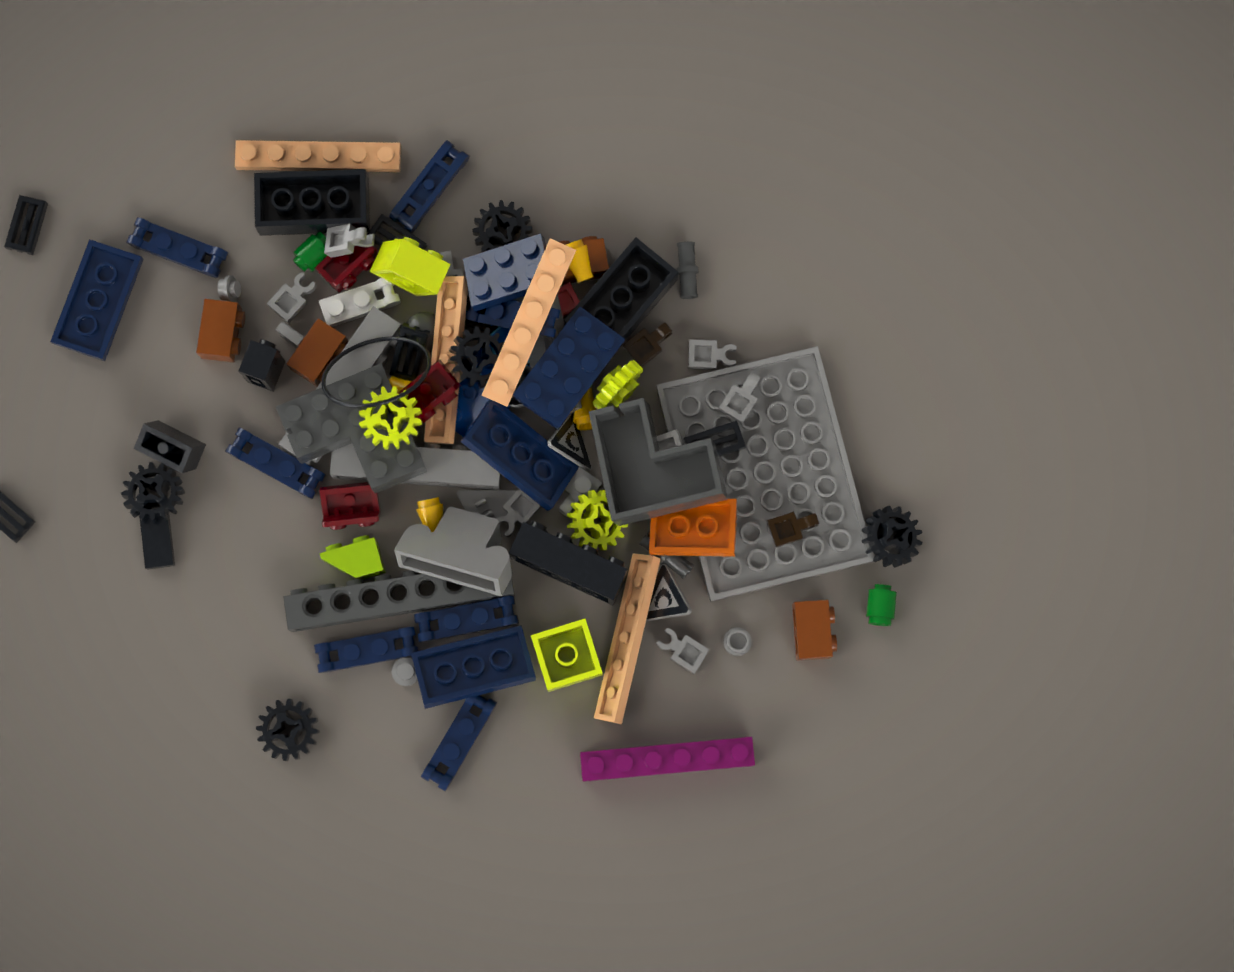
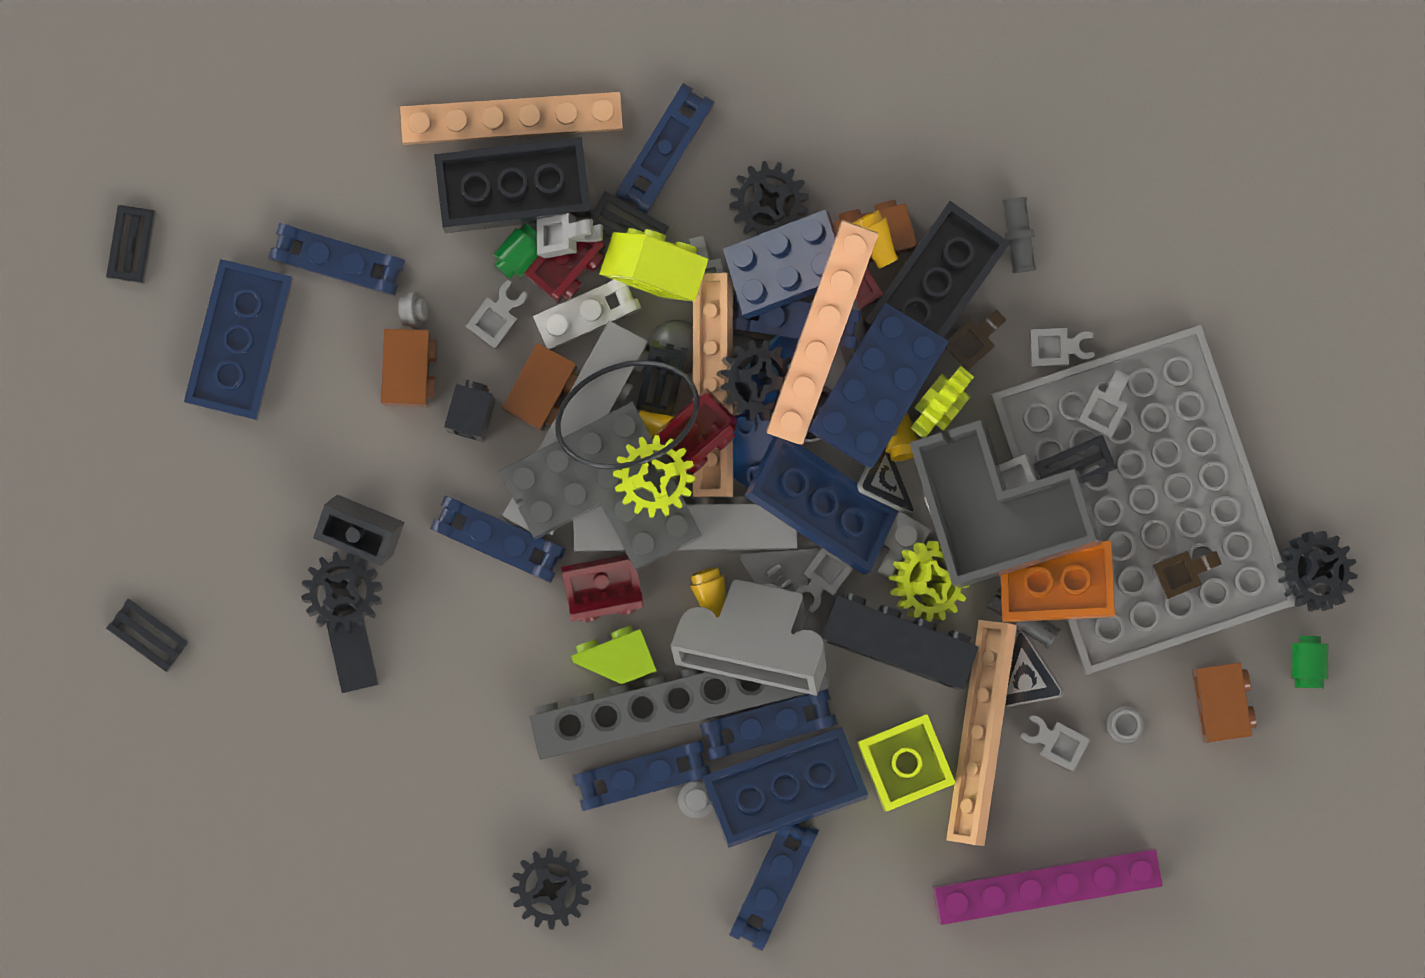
camera: 10 degrees left, 5 degrees up
(289, 334) = (502, 367): light grey tile -> none

